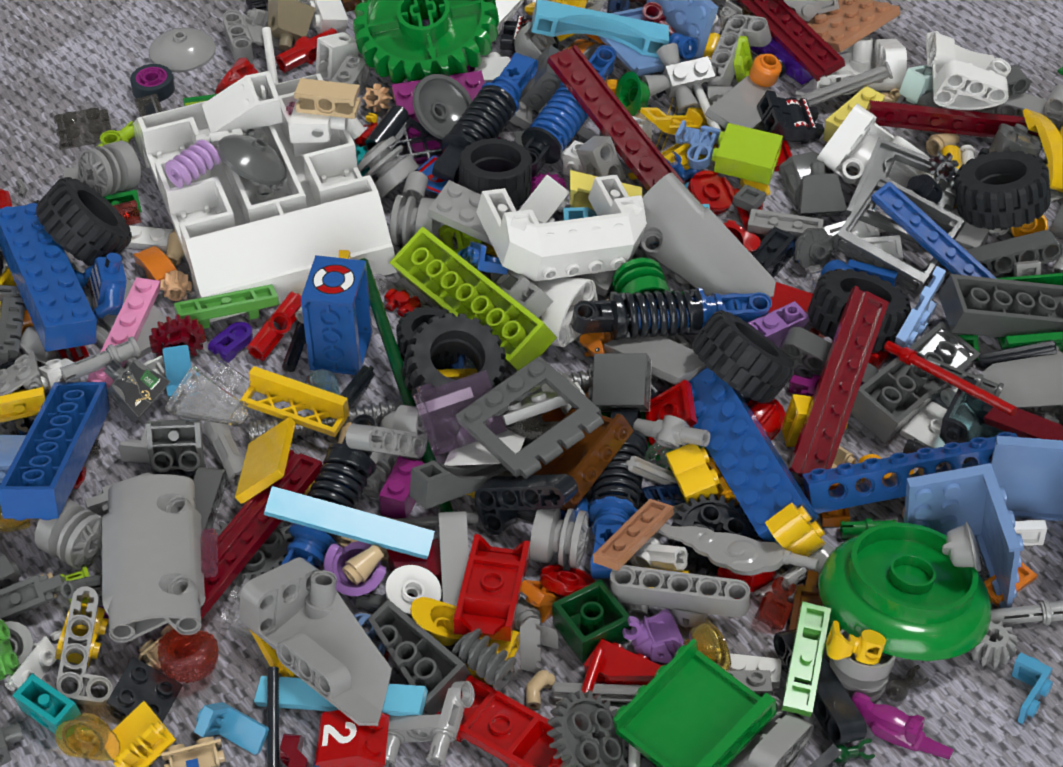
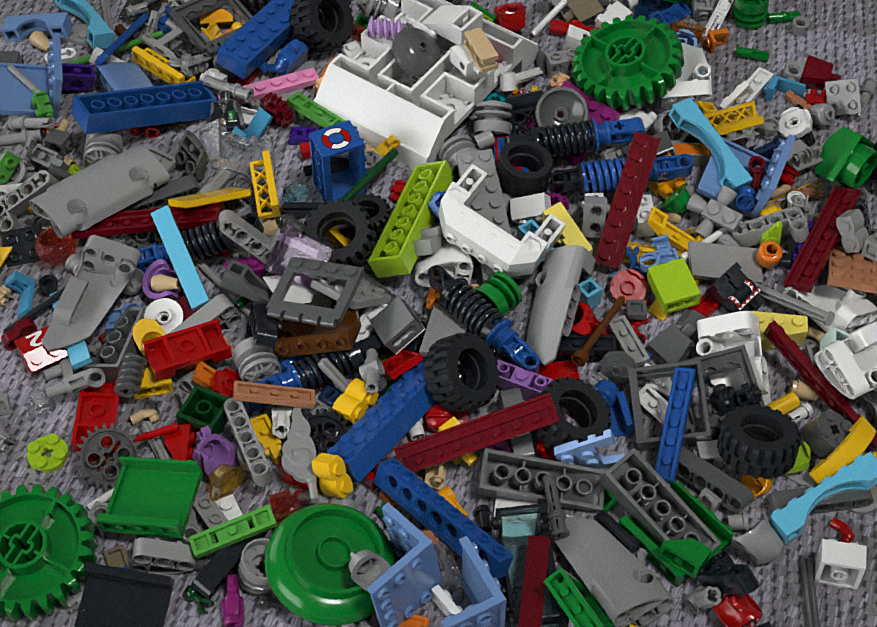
camera: 55 degrees right, 5 degrees up
(209, 552) = (120, 211): clear pink axle -> none
(233, 649) = (73, 263): none -> light grey wheel
(239, 686) = (48, 284): none -> black piece
(783, 263) = (580, 356): none -> reddish brown piece
(866, 647) = (256, 555): yellow leg -> none
(910, 357) = (542, 464): red bar -> none

